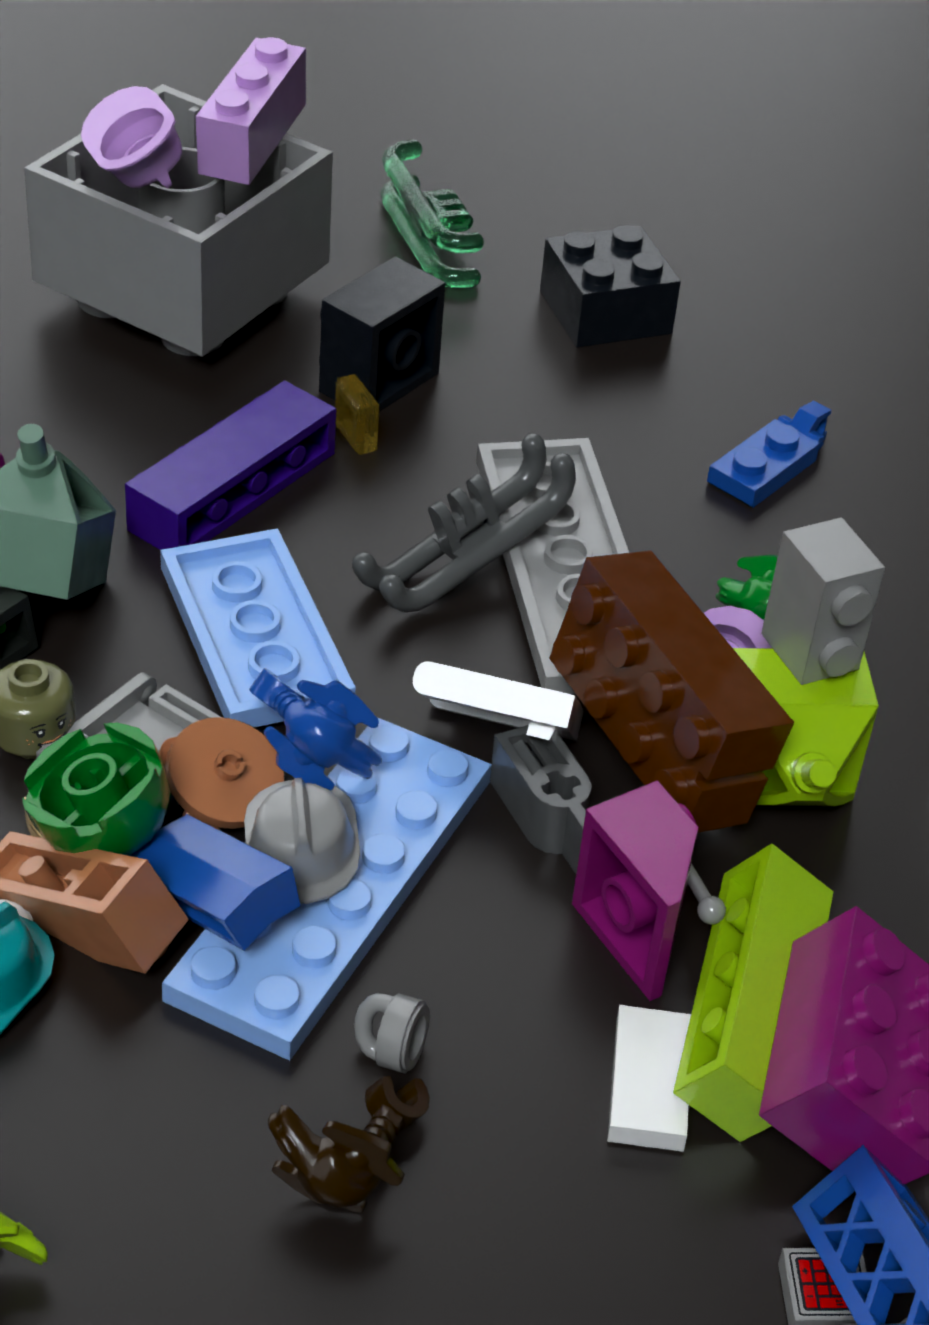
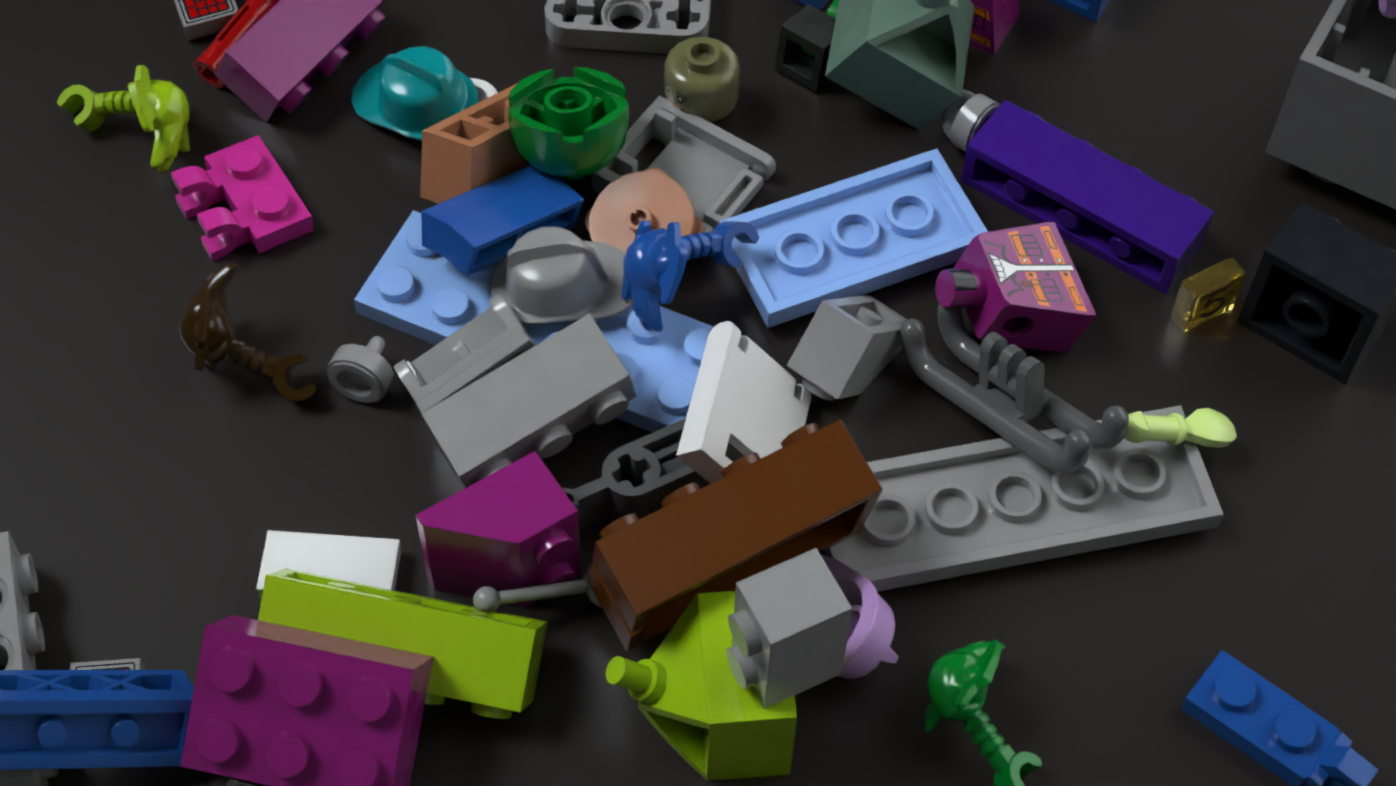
camera: 90 degrees right, 15 degrees up
(97, 1152) = (255, 190): none -> dark pink plate
(133, 528) = (970, 118): none -> light grey tile
(346, 512) = (1020, 288): none -> magenta torso
(398, 634) = (847, 346): none -> light grey slope
(406, 917) = (465, 355): none -> light grey hinge
(473, 867) = (532, 402): none -> light grey brick
(509, 437) = (1202, 427): none -> yellowish green piece

